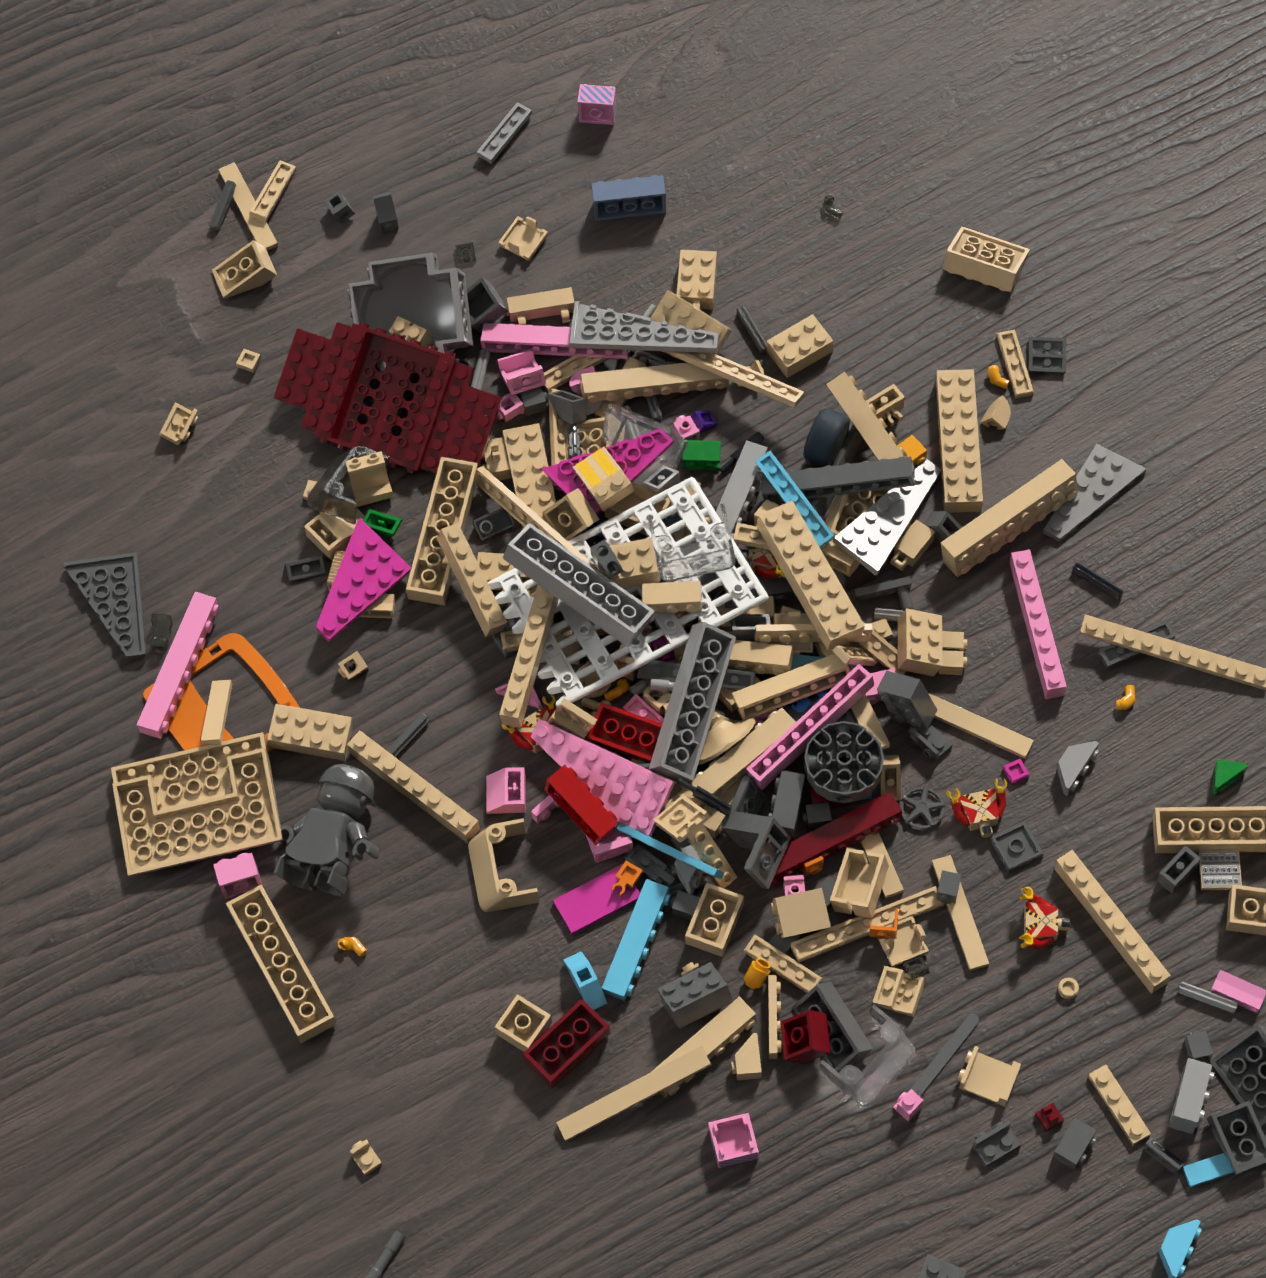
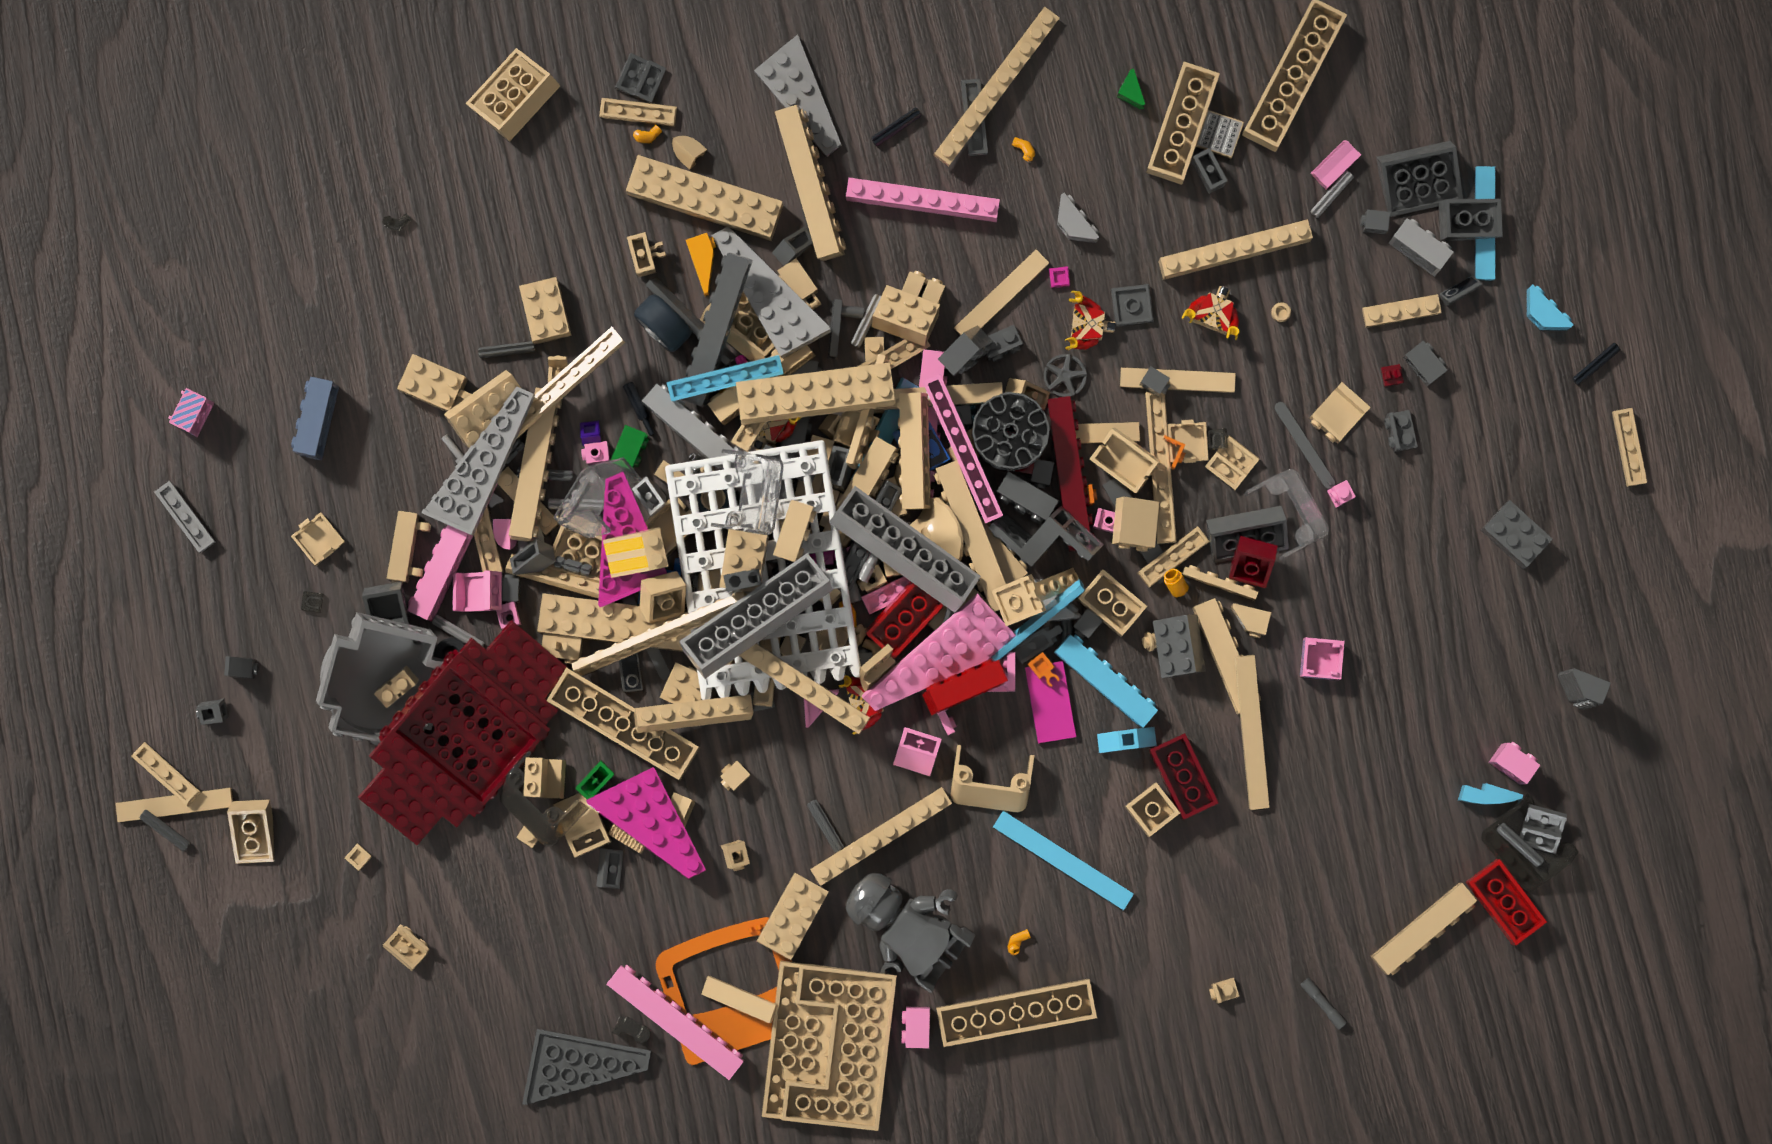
camera: 70 degrees left, 20 degrees up
(427, 641) = (734, 776): none -> tan brick
(445, 962) = (1063, 860): none -> medium azure tile
(707, 797) = (1002, 569): black axle -> none
(854, 655) = (905, 382): tan tile -> none
(864, 417) = (662, 279): tan brick -> none

